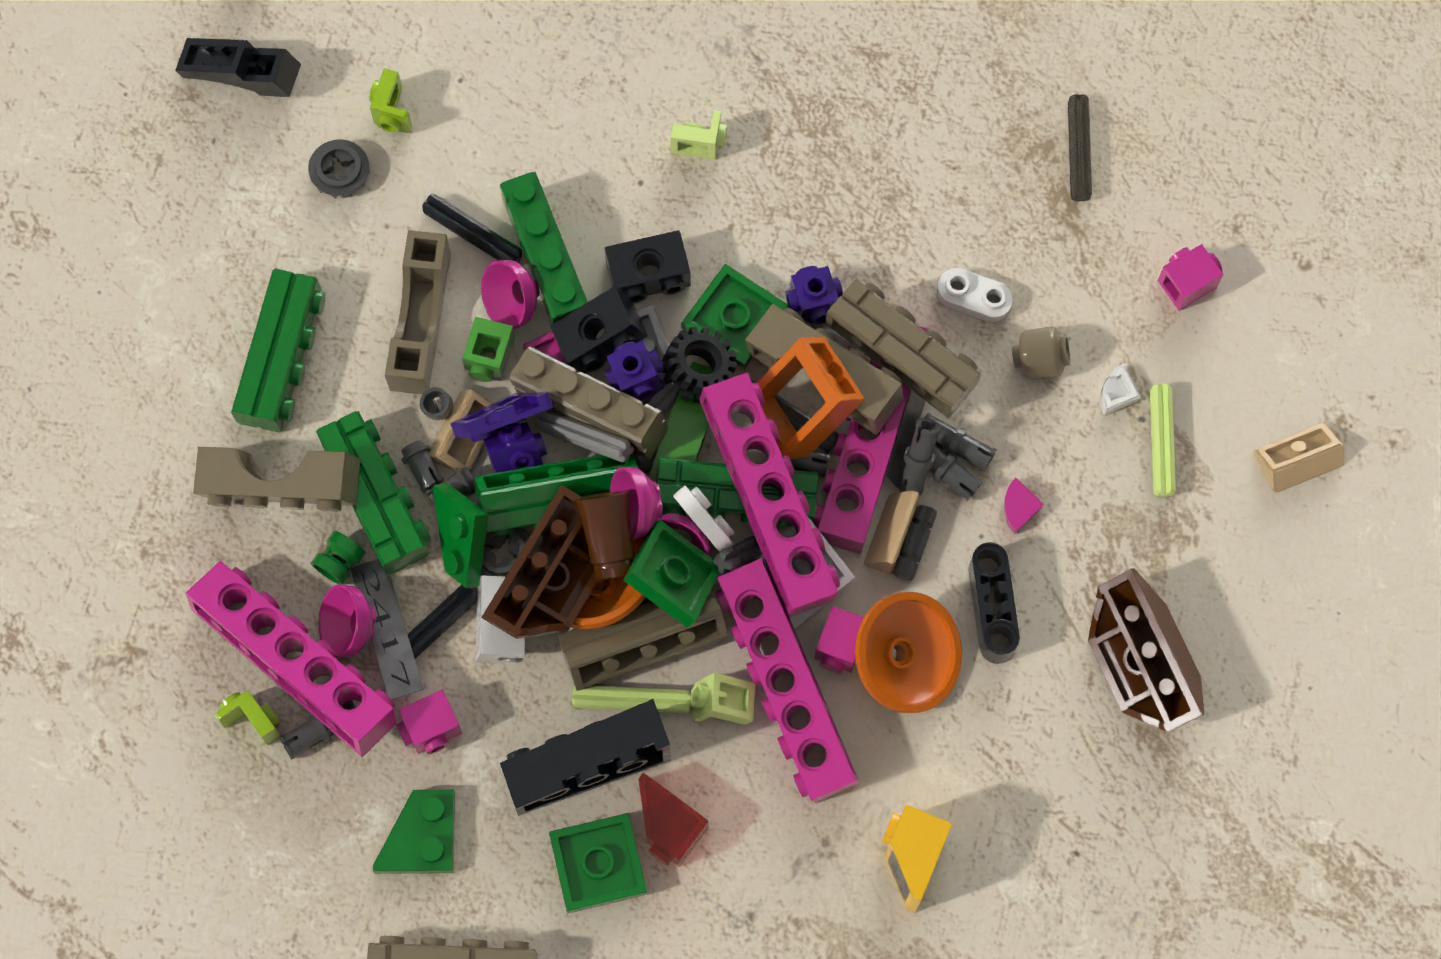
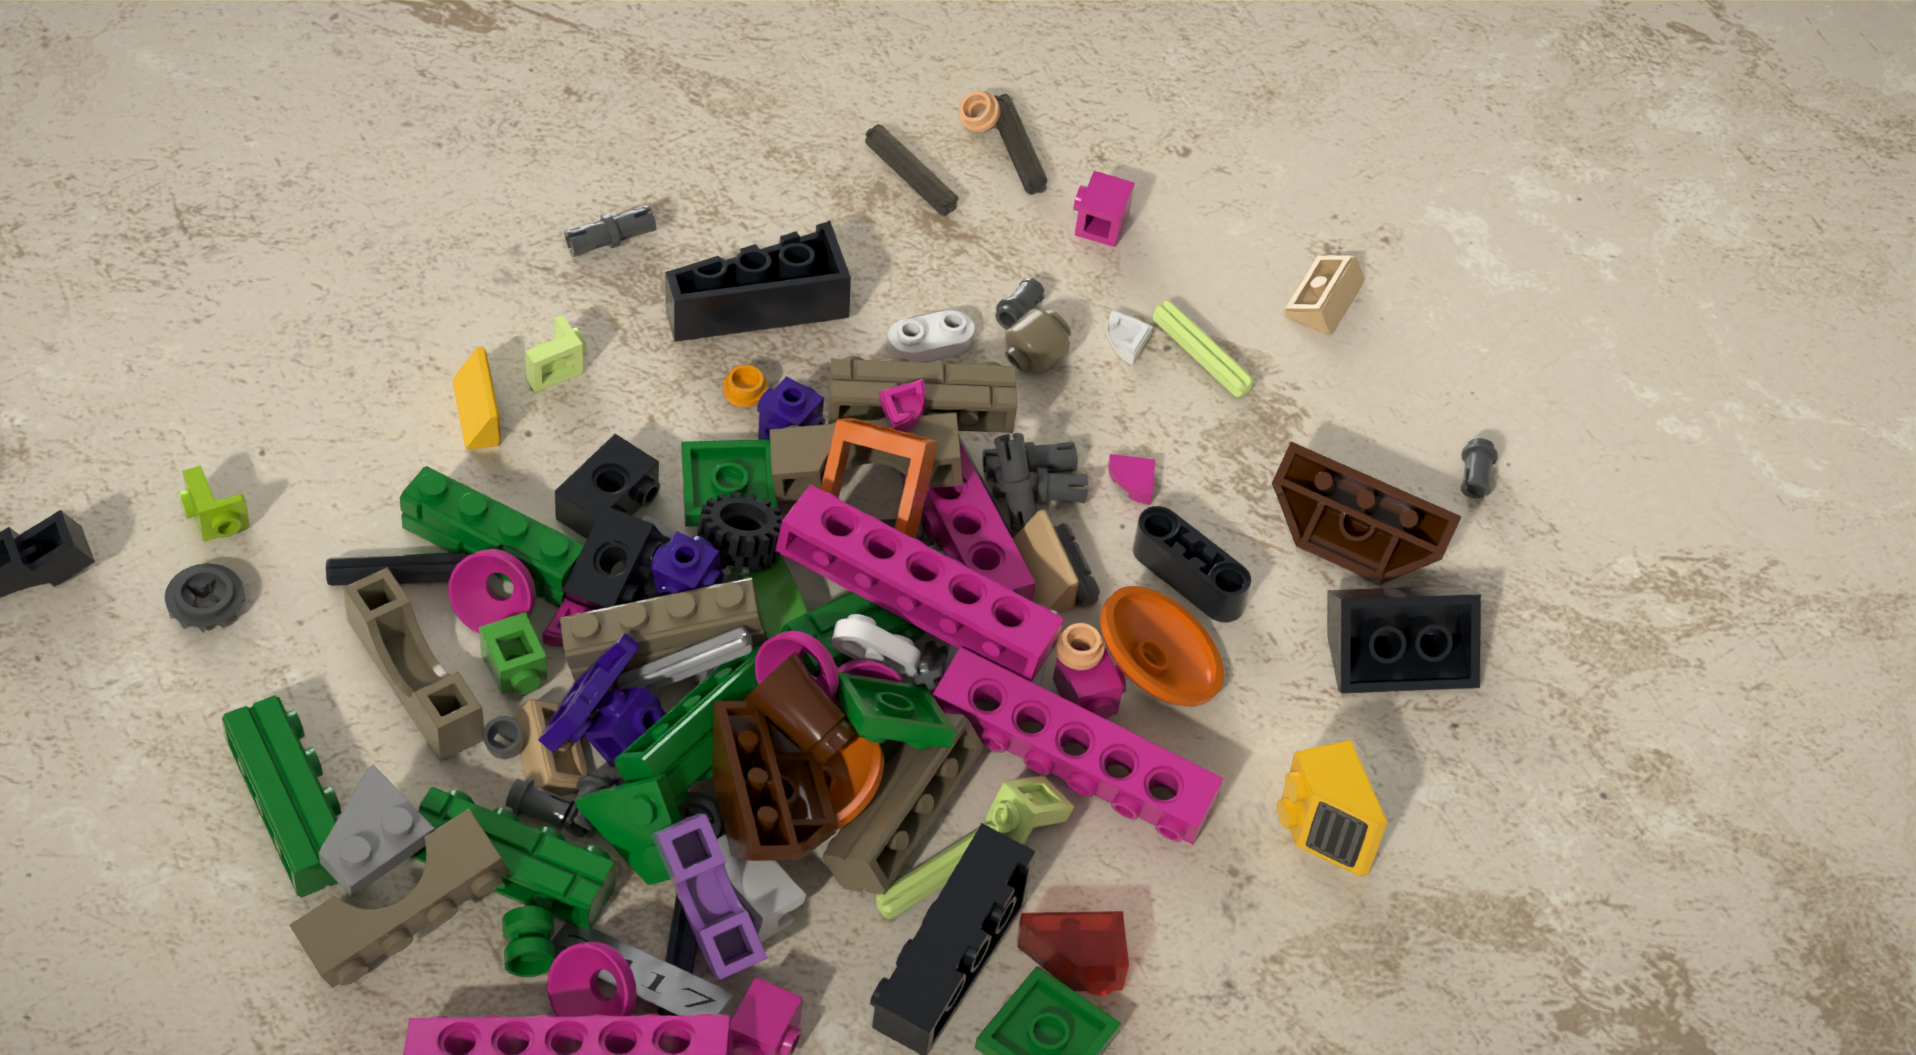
camera: 45 degrees left, 20 degrees down
(292, 420) = (372, 834): none -> light grey wing
(452, 642) = (707, 896): none -> medium lavender arch
(622, 139) = (477, 402): none -> yellow slope
(809, 248) = (744, 386): none -> light orange plate
(820, 58) = (610, 230): none -> dark grey pin
(848, 604) = (1080, 636): none -> light nougat plate
(869, 353) = (904, 404): none -> dark pink tile
(879, 179) = (760, 288): none -> black wedge
(1059, 312) = (1021, 300): none -> dark grey pin
(1093, 767) = (1404, 638): none -> black slope
(1168, 124) = (972, 104): none -> light nougat plate
(1179, 177) = (1020, 147): none -> clear smoke axle
(1277, 677) = (1478, 458): none -> dark grey pin

